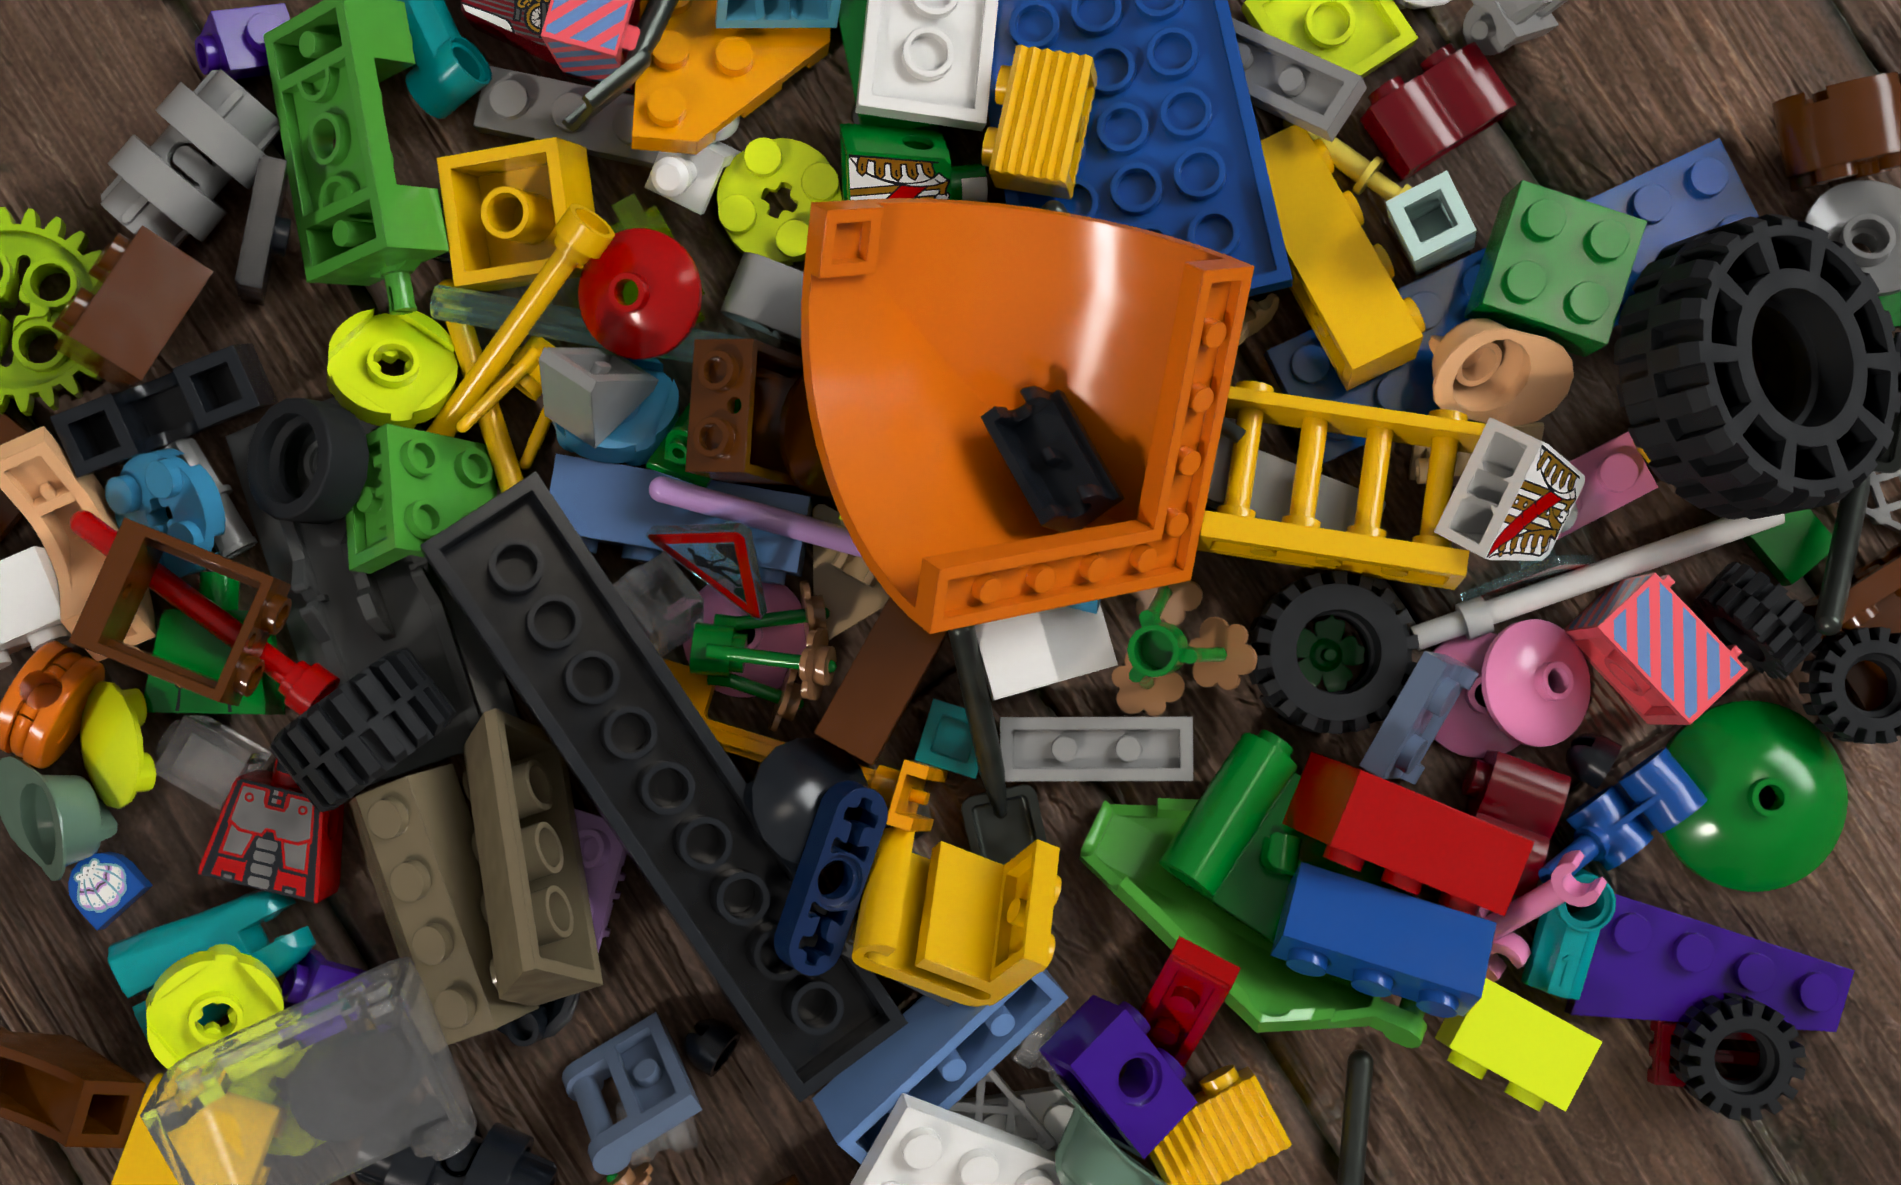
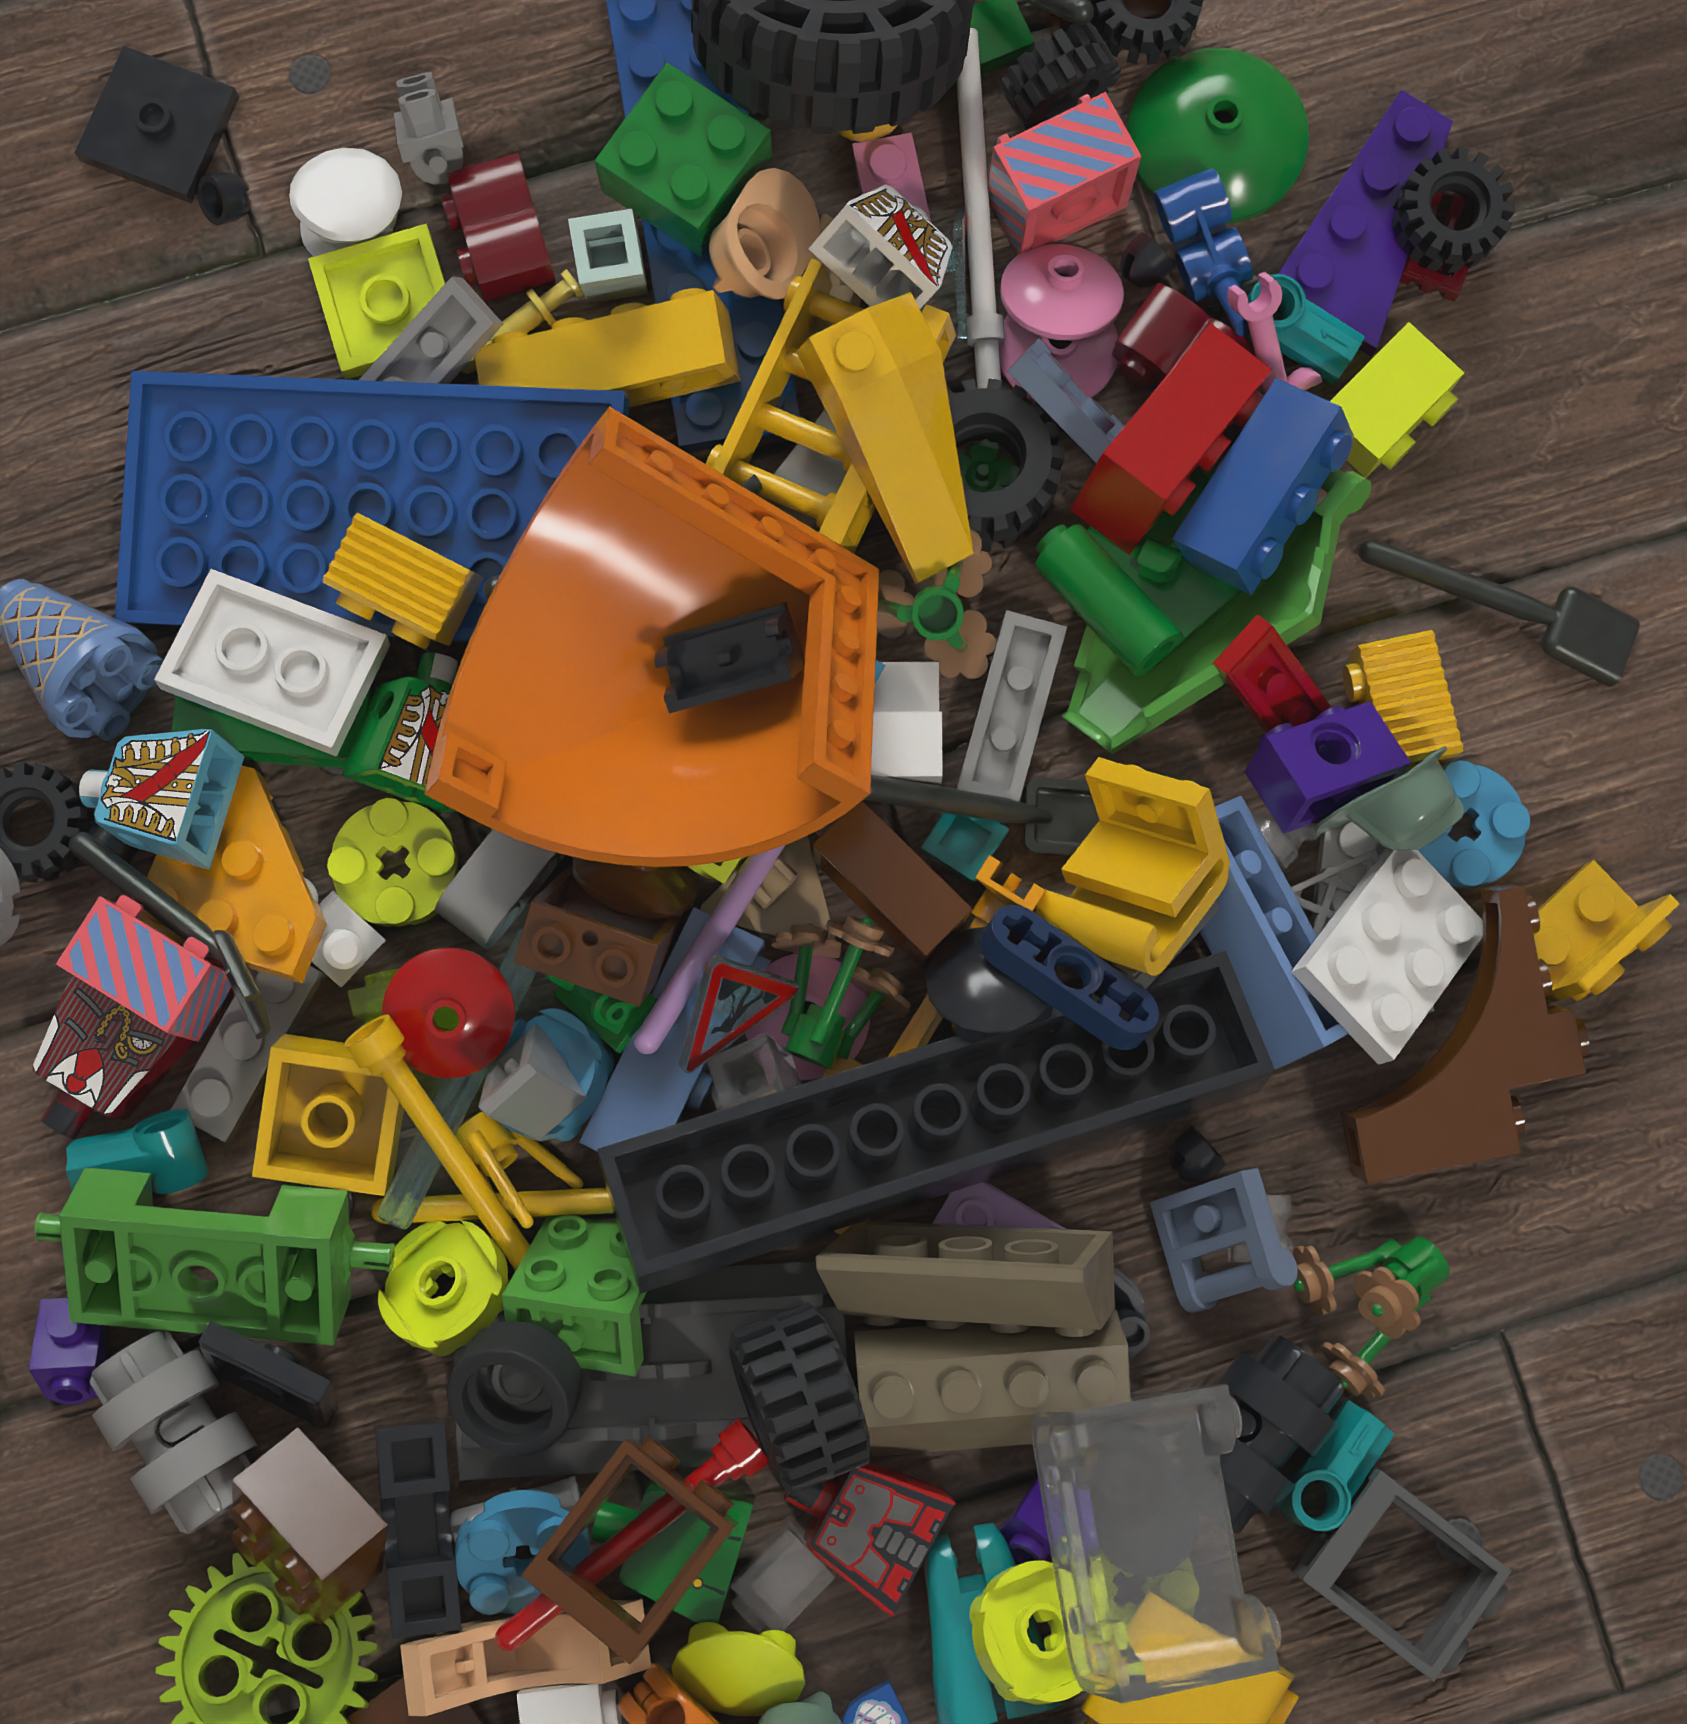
camera: 75 degrees left, 5 degrees down
(1341, 551) = (893, 413): none -> yellow wedge

